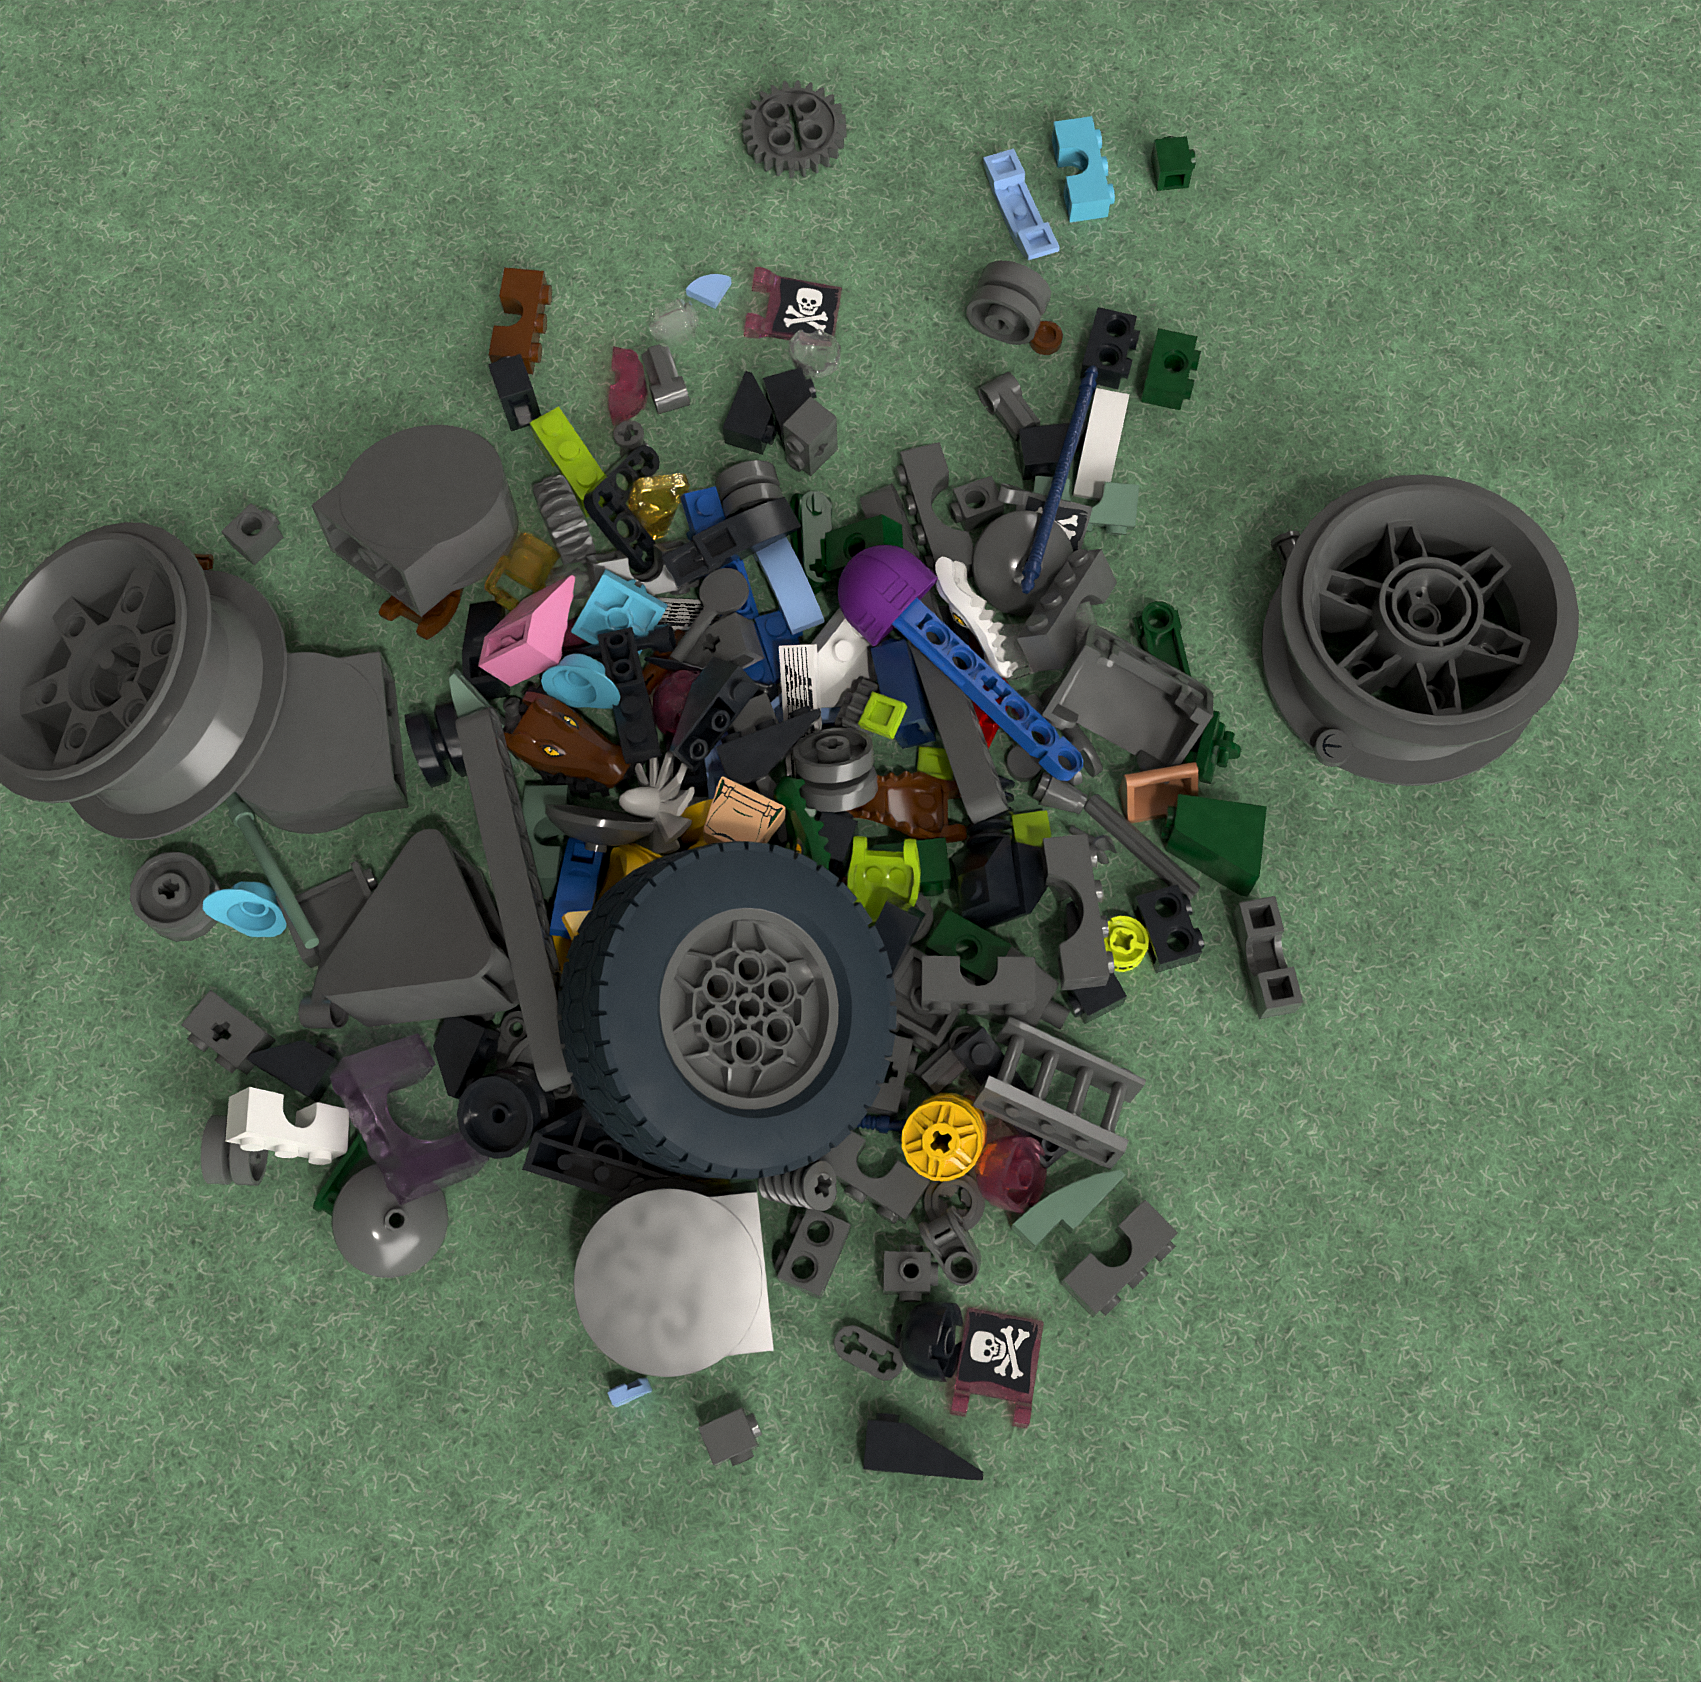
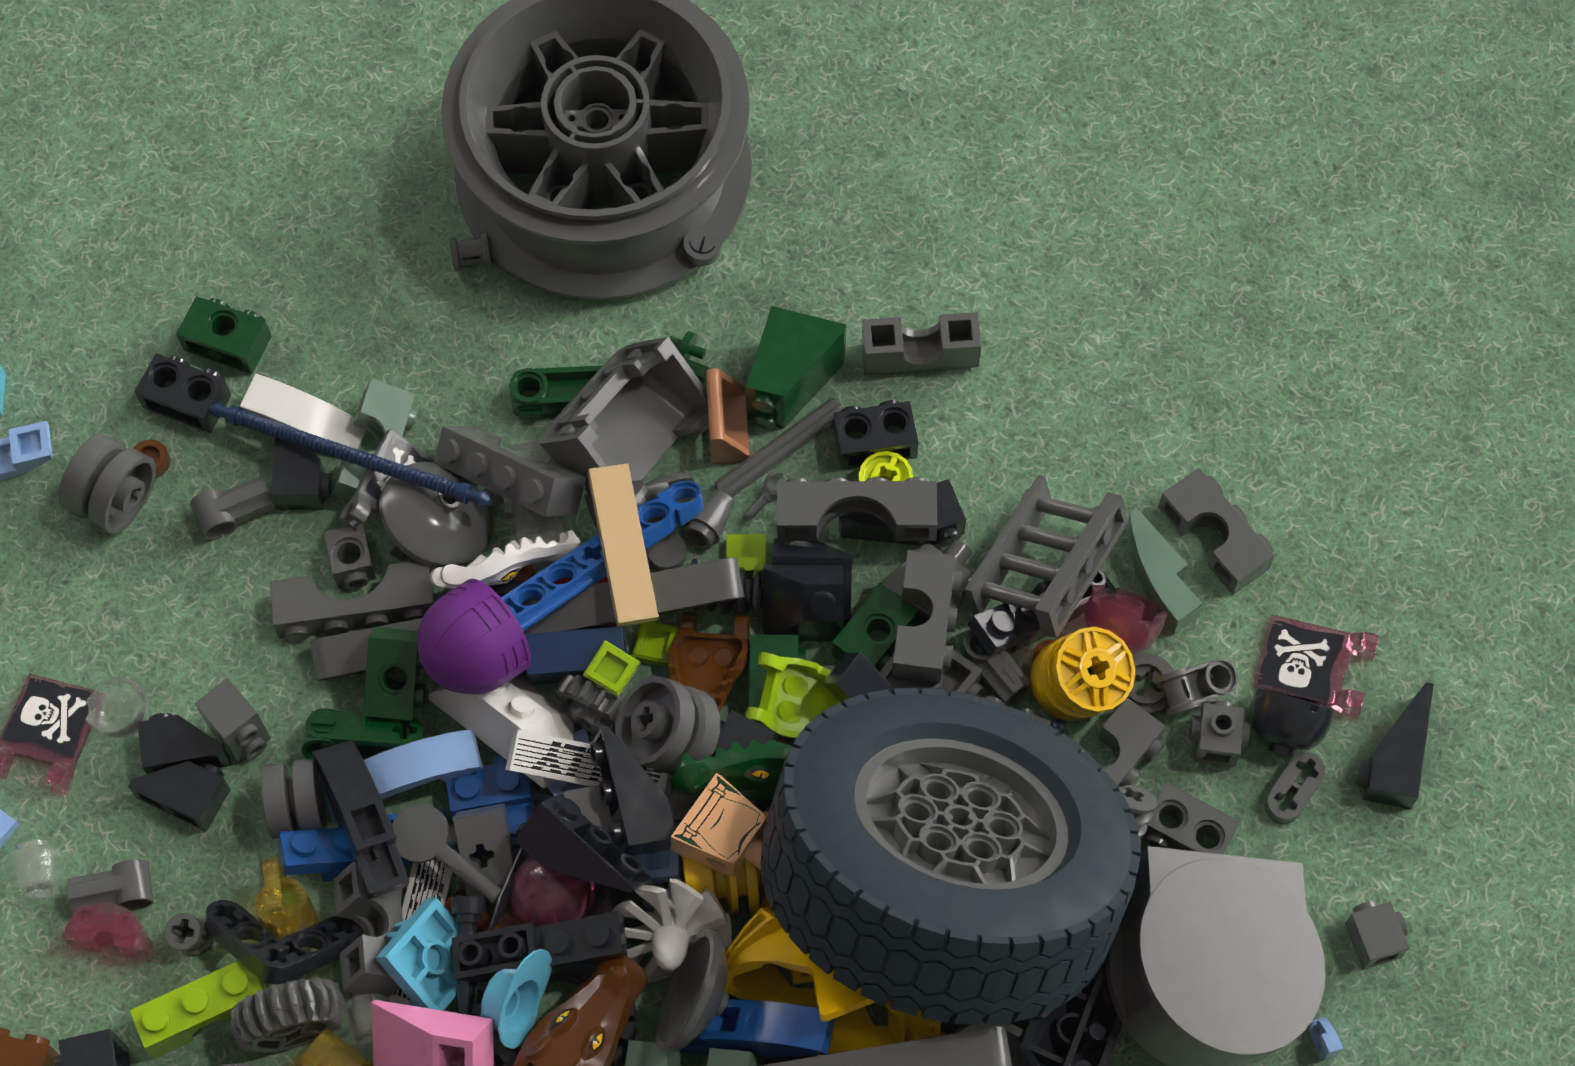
camera: 85 degrees left, 5 degrees down
(997, 704) = (622, 545): none -> tan tile

